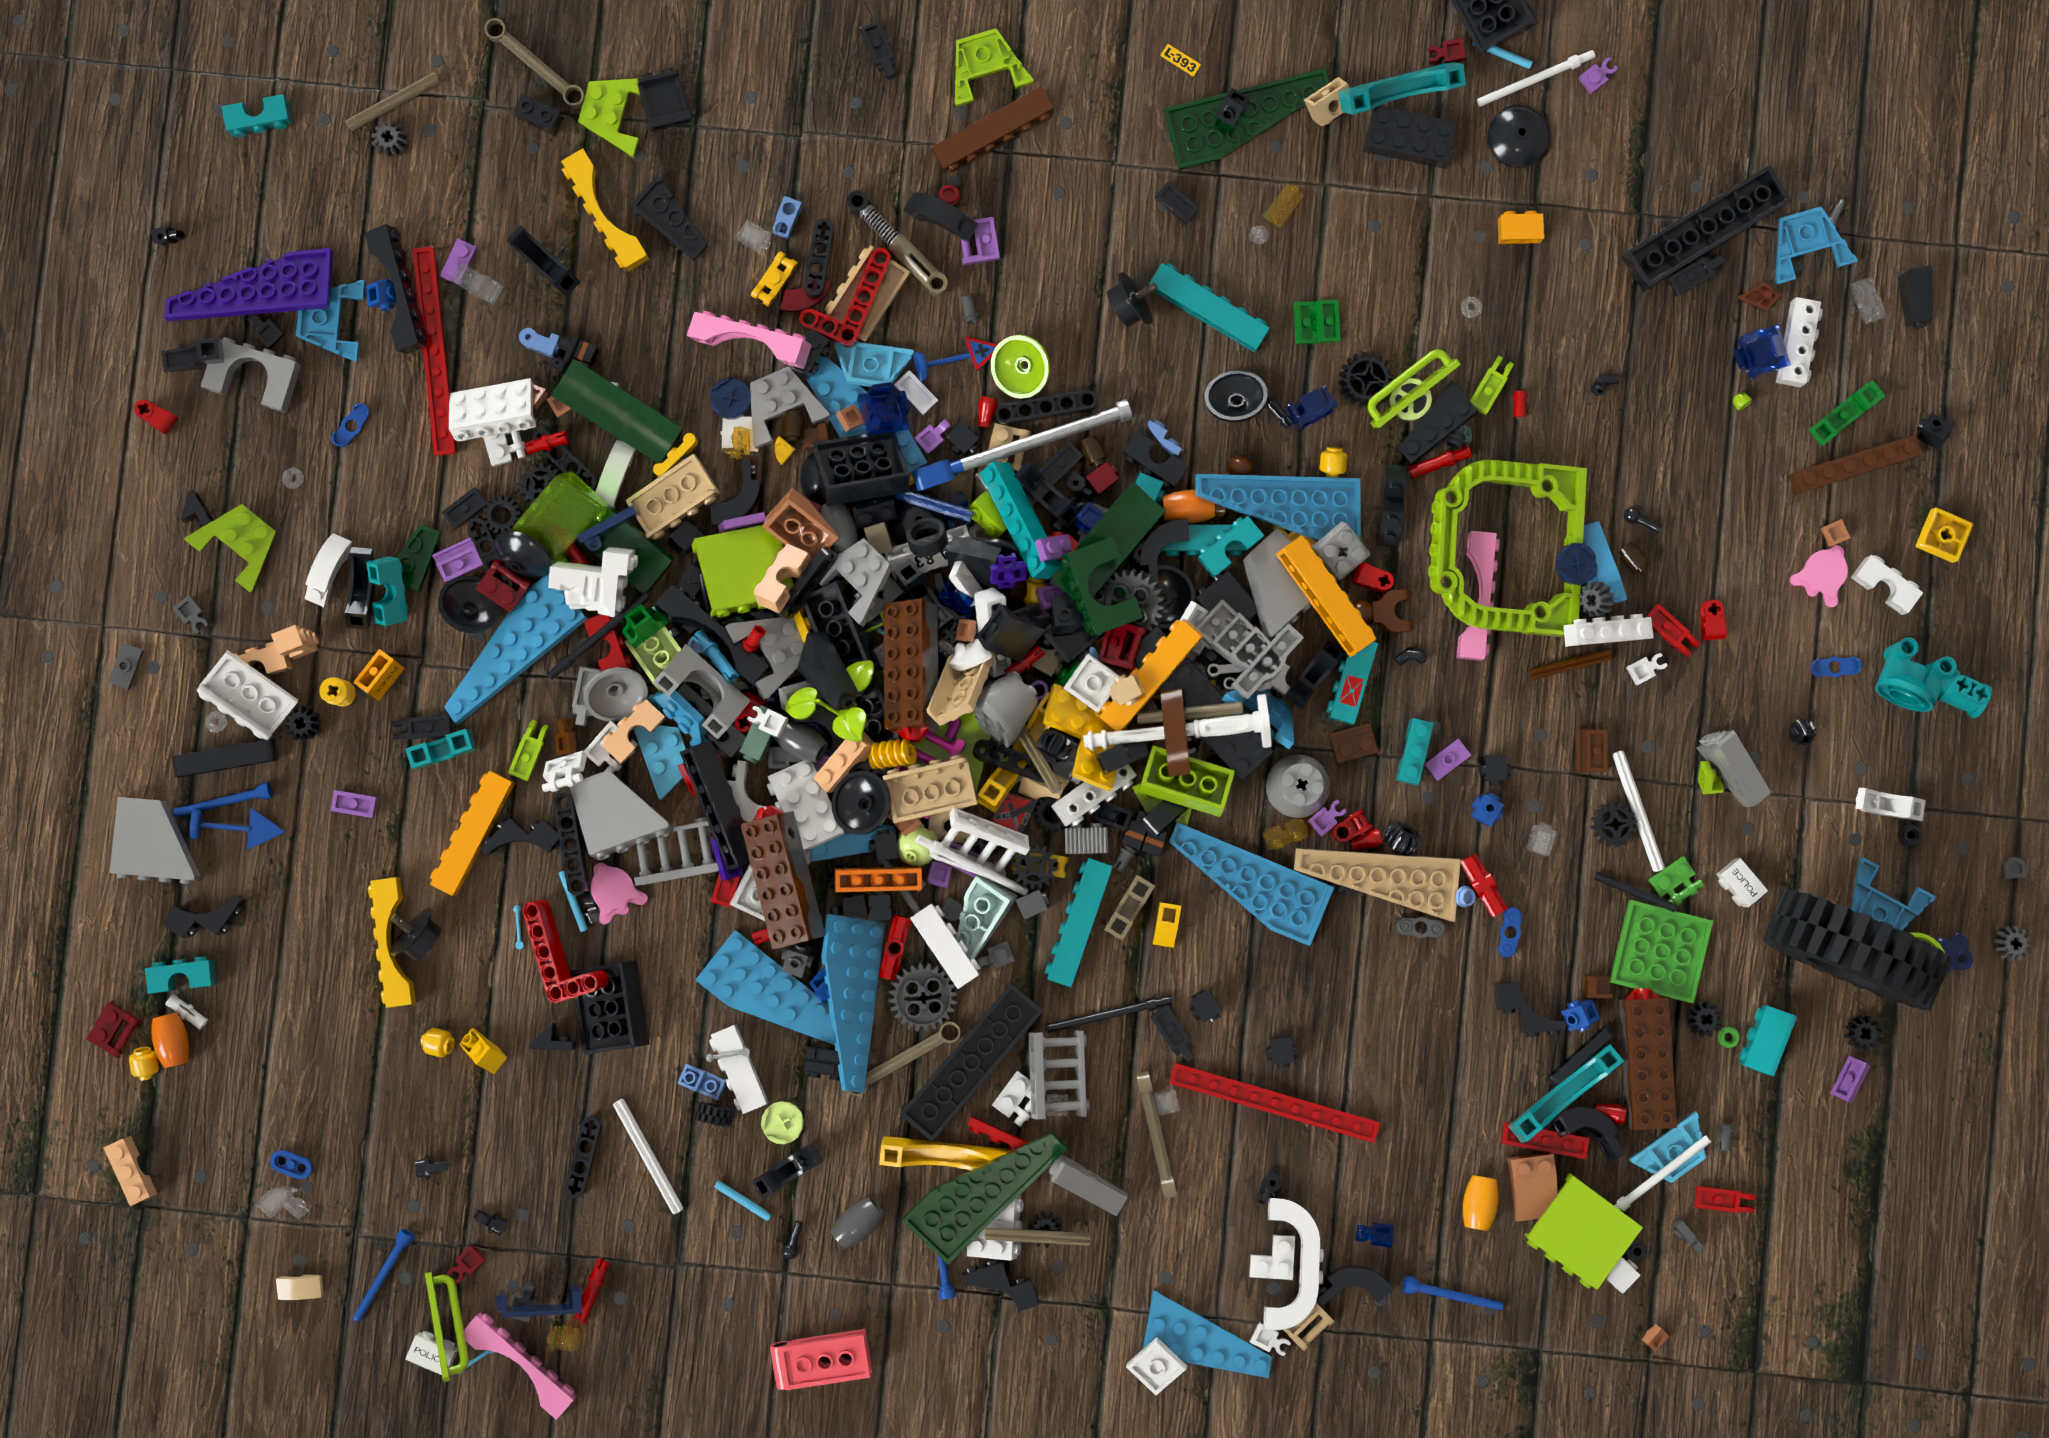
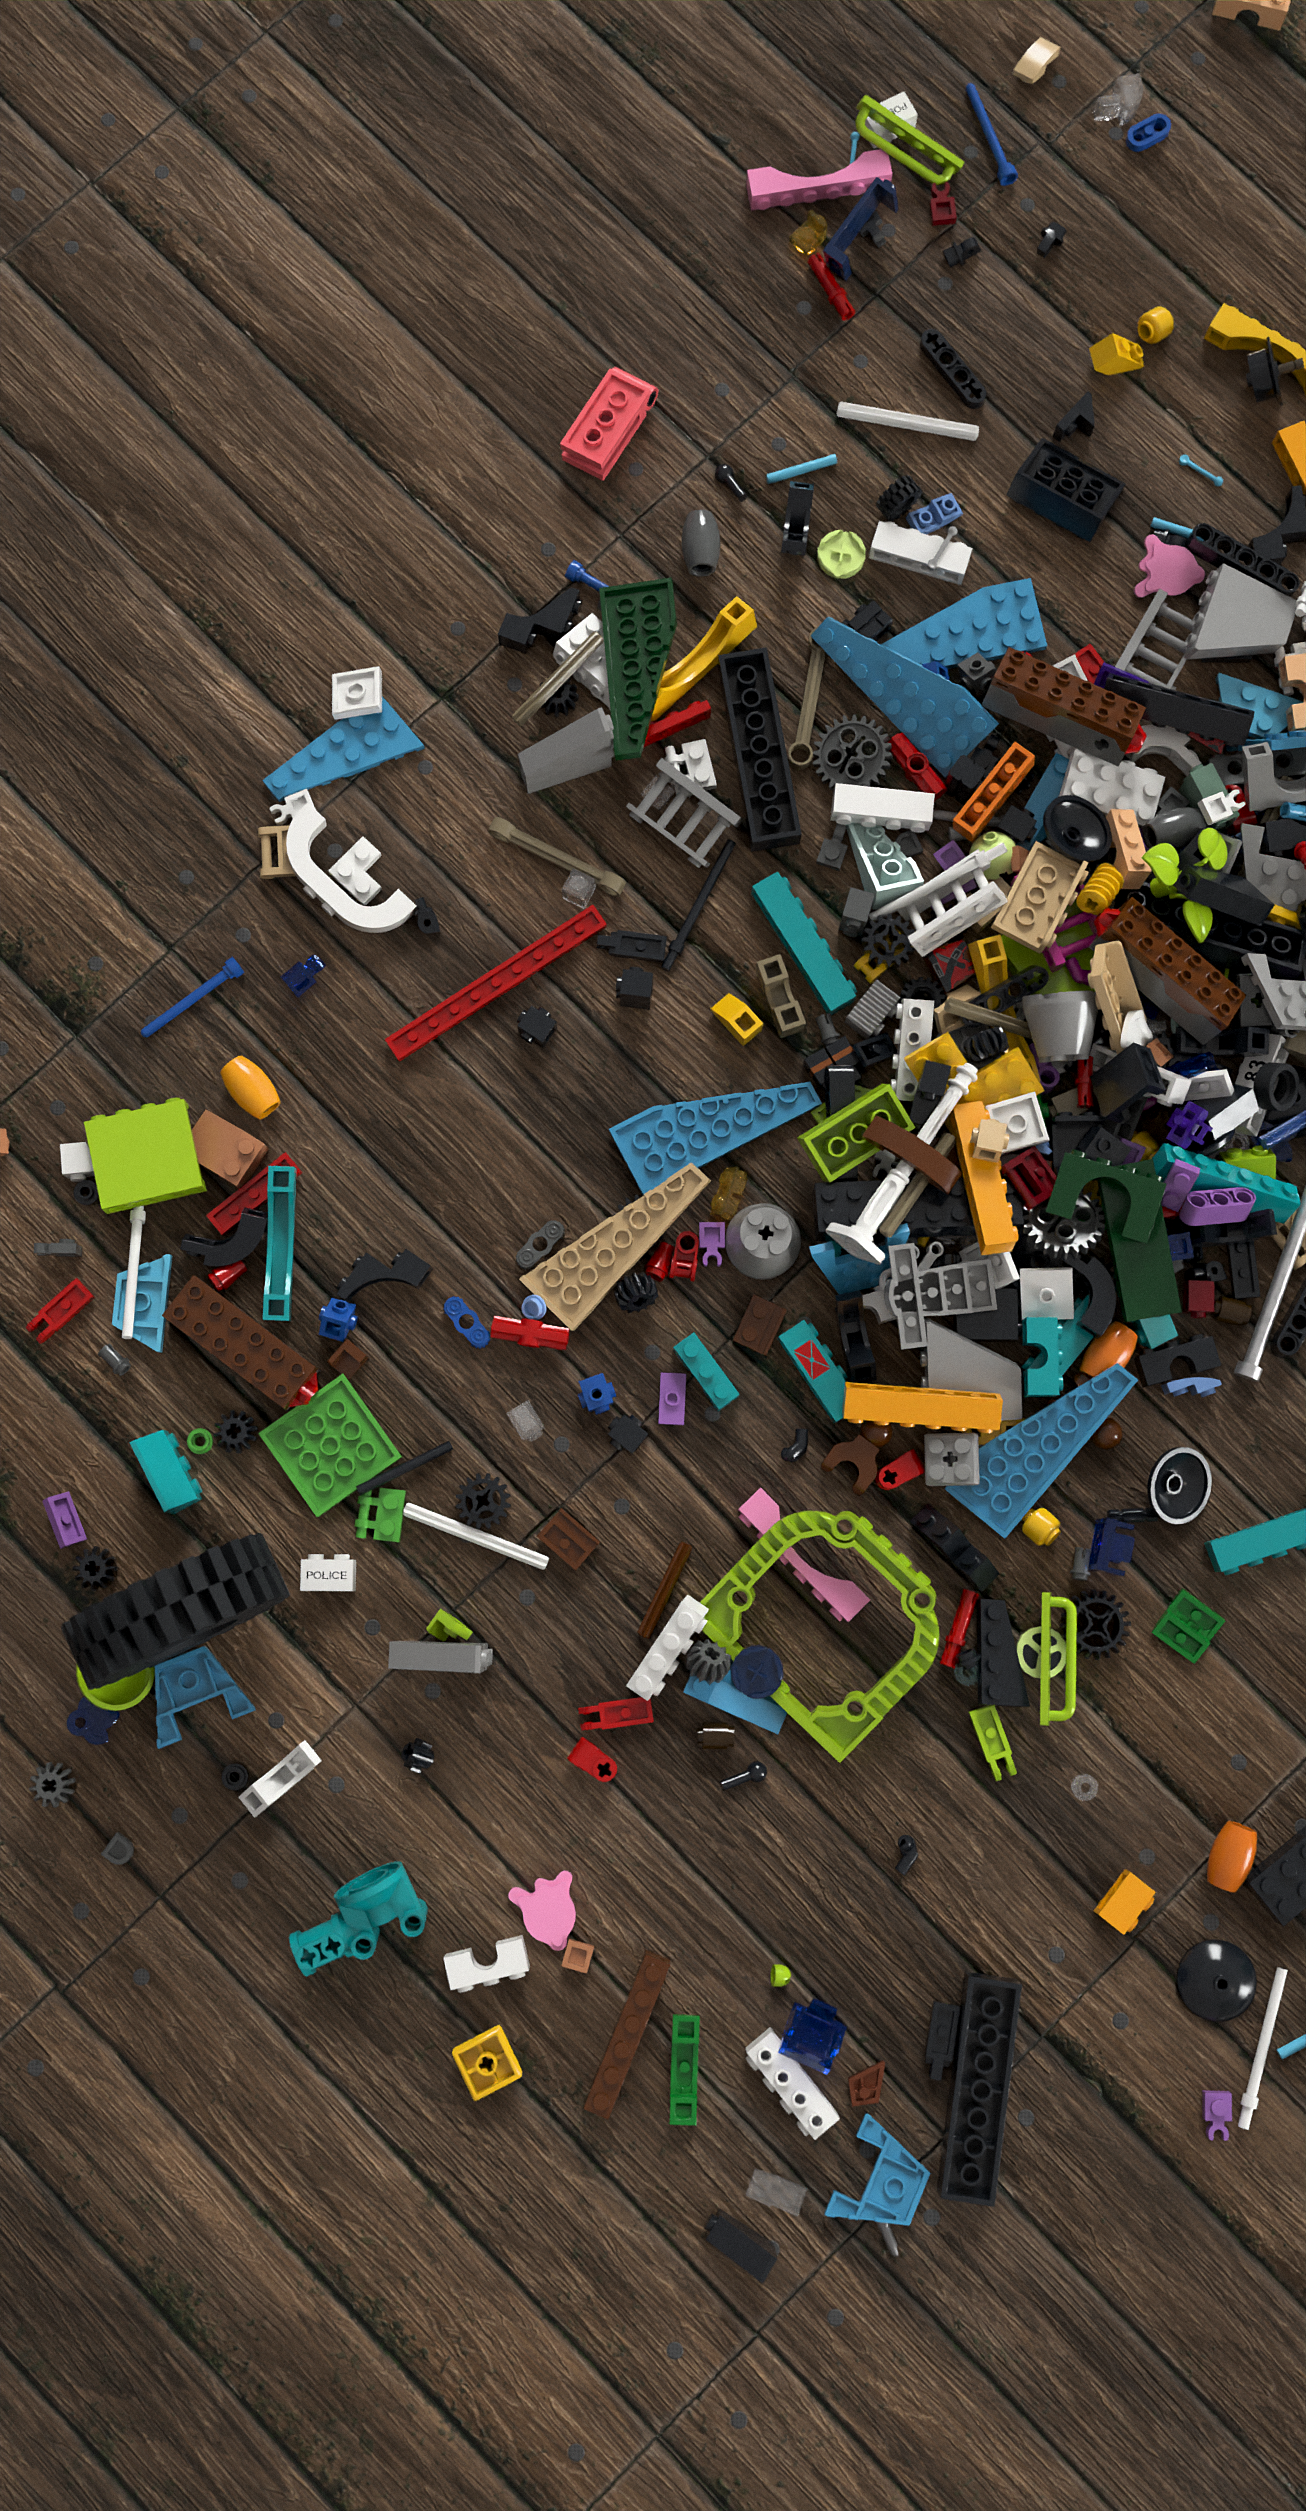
camera: 125 degrees right, 5 degrees down
(555, 958) = (1154, 474): red beam -> none
(1035, 508) = (1217, 1206): none -> medium lavender beam
(1185, 576) = (1047, 1292): none -> white plate
(1335, 417) = (1081, 1564): none -> dark grey pin
(1354, 1276) = (279, 930): black arch -> none
(1439, 185) = (1231, 1856): none -> orange piece
(1520, 399) = (952, 1754): red pin -> none
(1580, 1055) = (301, 1290): black beam -> none
(1644, 670) = (602, 1653): white plate -> none
(1848, 666) = (441, 1856): blue piece -> none
(1934, 431) = (595, 2143): black brick -> none

